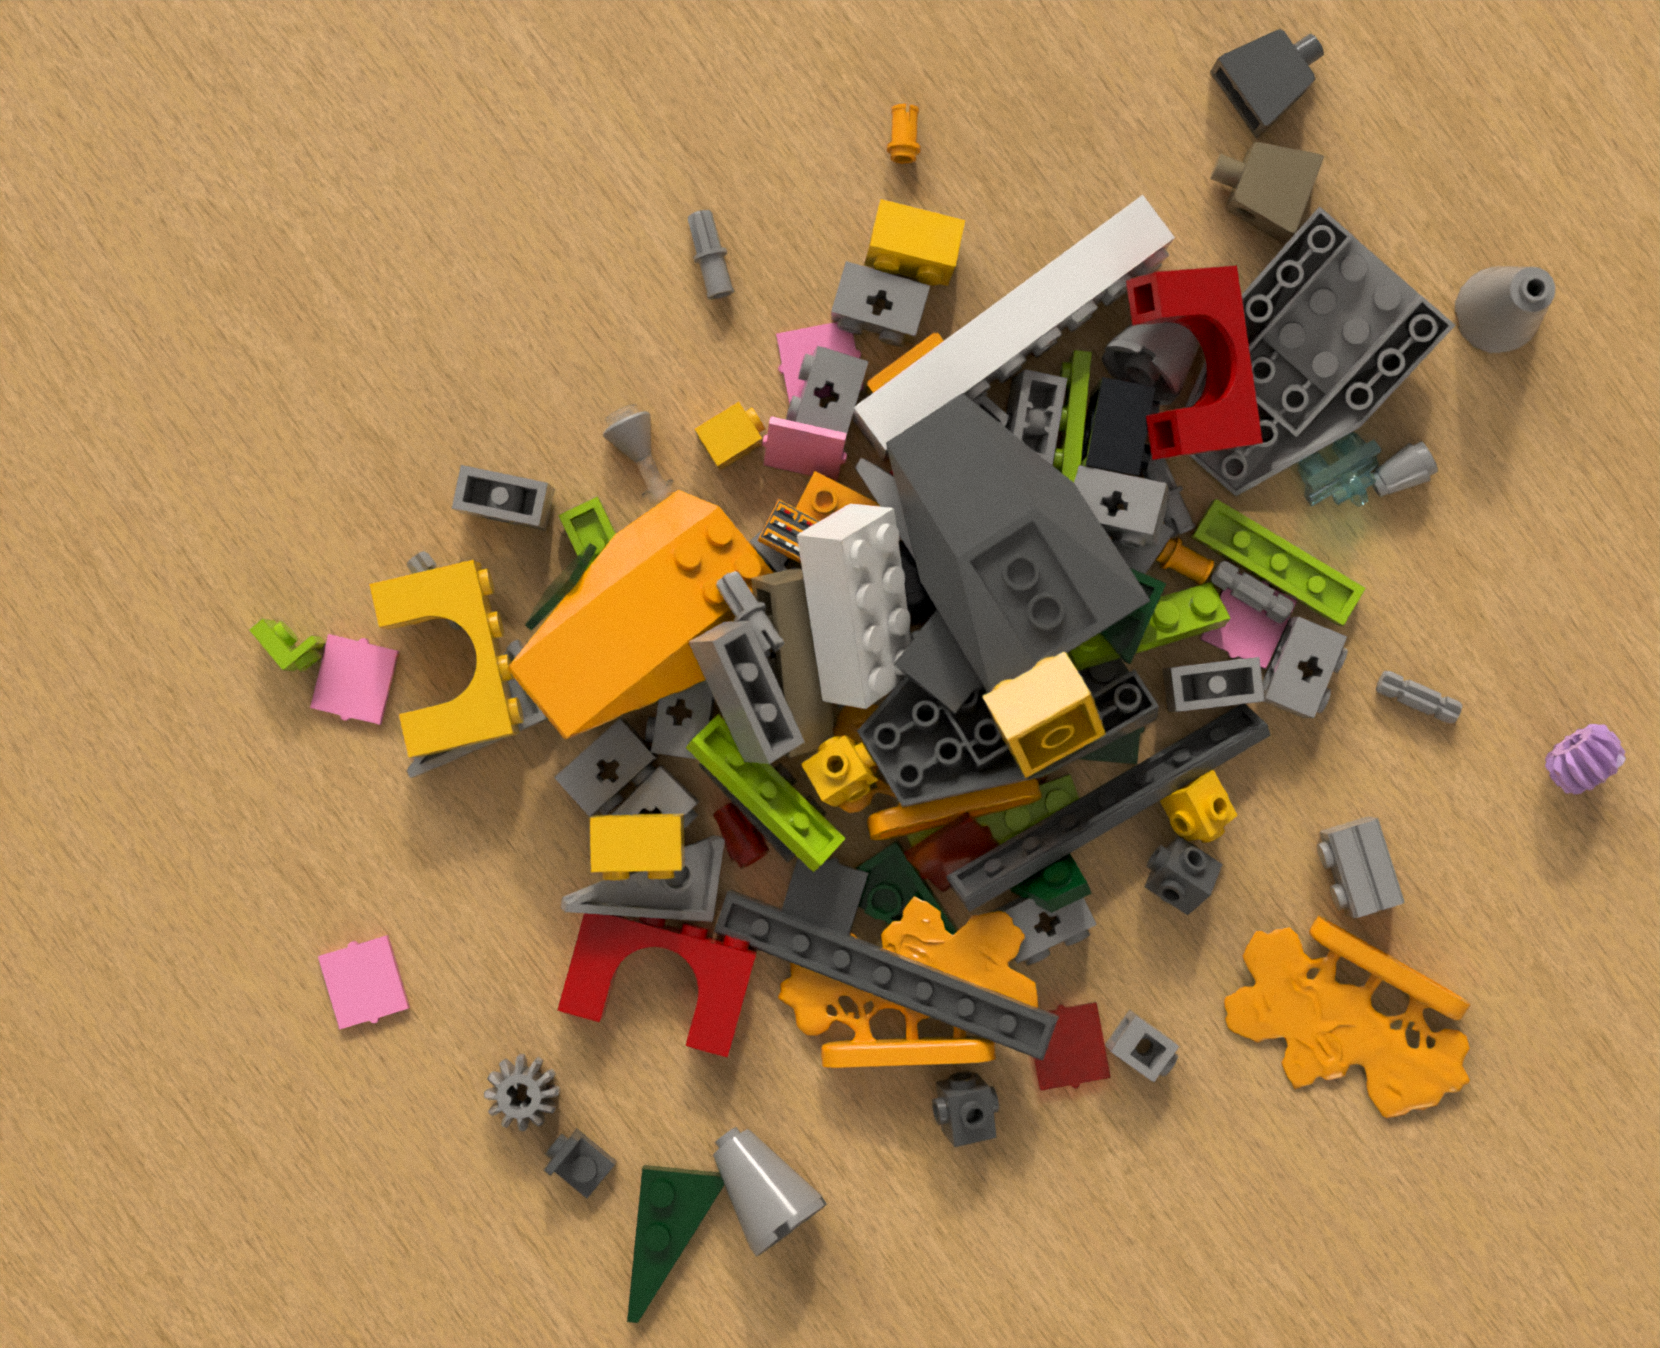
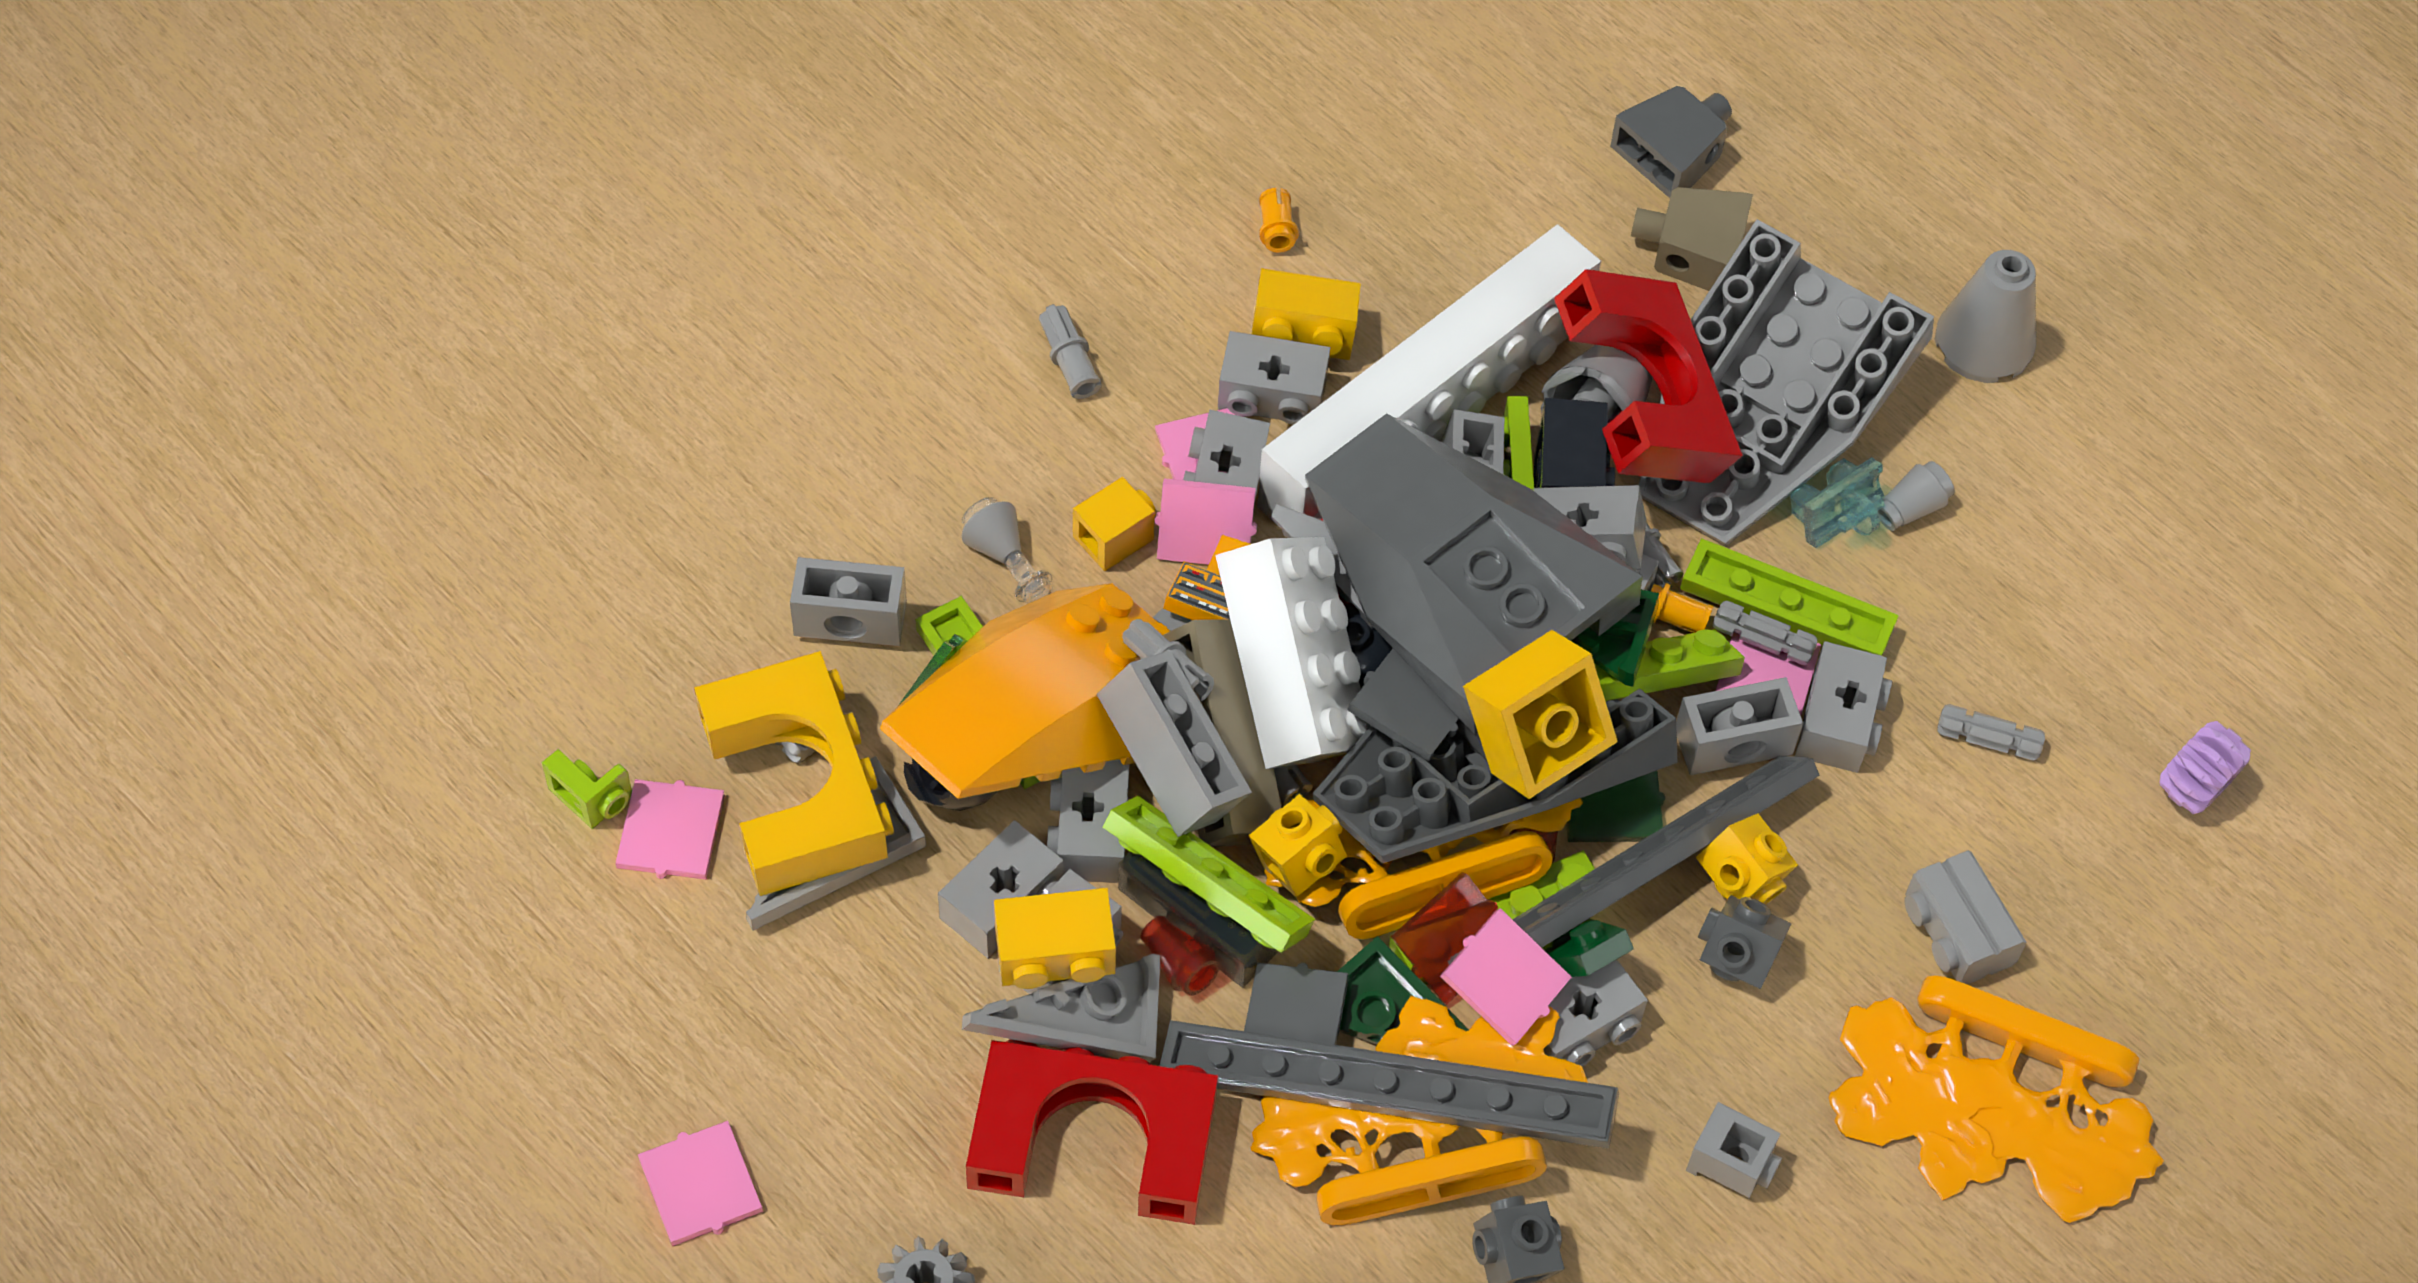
camera: 10 degrees left, 30 degrees down
(986, 911) = (1506, 976): none -> bright pink piece
(1075, 1049) = (1640, 1176): clear red piece -> none

